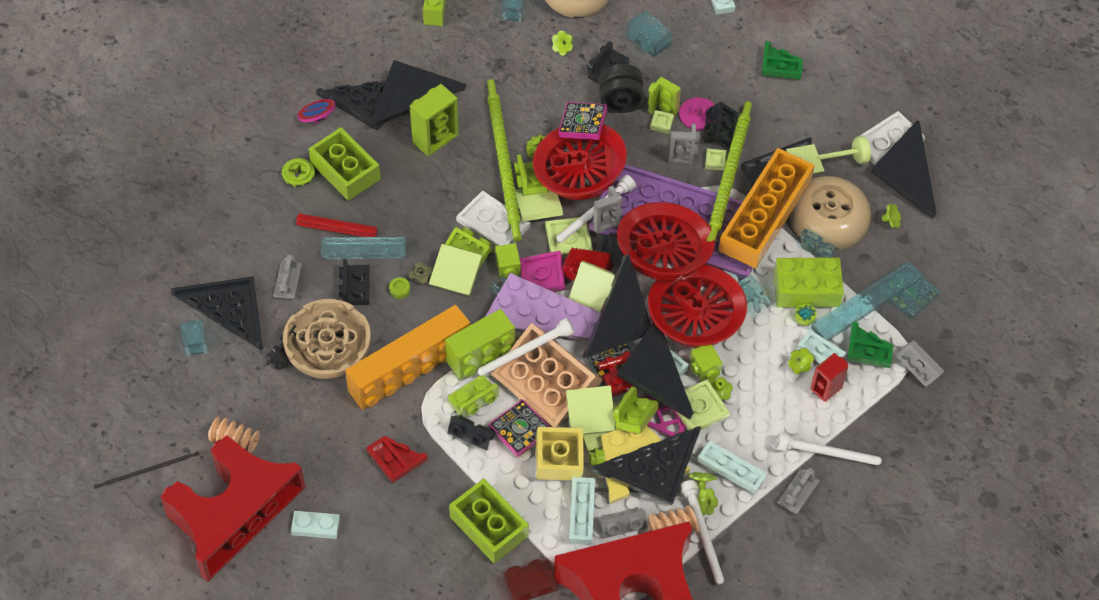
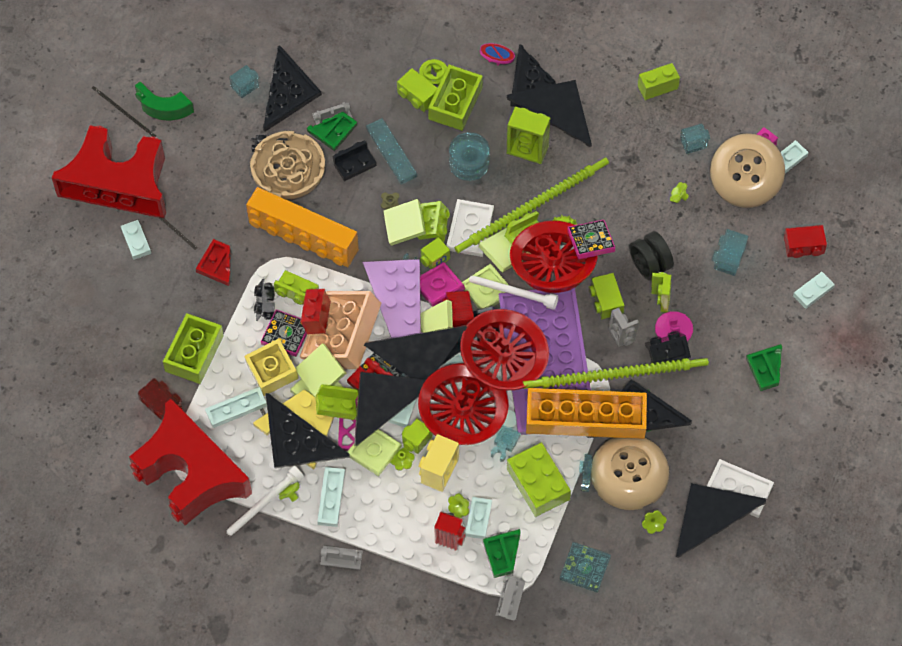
camera: 65 degrees right, 5 degrees up
(170, 429) = (163, 108): none -> green arch
(220, 429) = (175, 148): light nougat piece -> none
(307, 284) = (333, 130): none -> green wing
(311, 193) = (416, 89): none -> lime brick
(335, 480) = (178, 233): none -> clear smoke axle
(336, 226) = (399, 123): red axle -> none
(399, 288) = (369, 193): lime tile -> none
(419, 182) = (469, 156): none -> clear light blue wheel
(479, 344) = (336, 267): lime brick -> none
(520, 384) = (315, 311): none -> red brick
(564, 328) = (372, 314): white piece -> none
(596, 457) = (285, 395): lime plate -> none
(605, 58) = (679, 235): black bracket -> none
(608, 211) = (507, 297): light grey bracket -> none
(629, 521) = (235, 434): light grey hinge -> none
(641, 144) = (606, 295): none -> lime brick
(662, 122) = (646, 304): yellowish green tile -> none
(671, 518) = (258, 480): light nougat piece -> none
(702, 478) = (309, 479): lime plant -> none
(715, 159) = (632, 358): yellowish green tile -> none
(751, 352) = (439, 462): none -> light yellow brick
(785, 442) = (376, 526): white piece -> none
(805, 314) = (509, 492): tile -> none
(860, 150) = (665, 426): yellowish green piece -> none
(867, 301) = (551, 535): clear light blue tile -> none

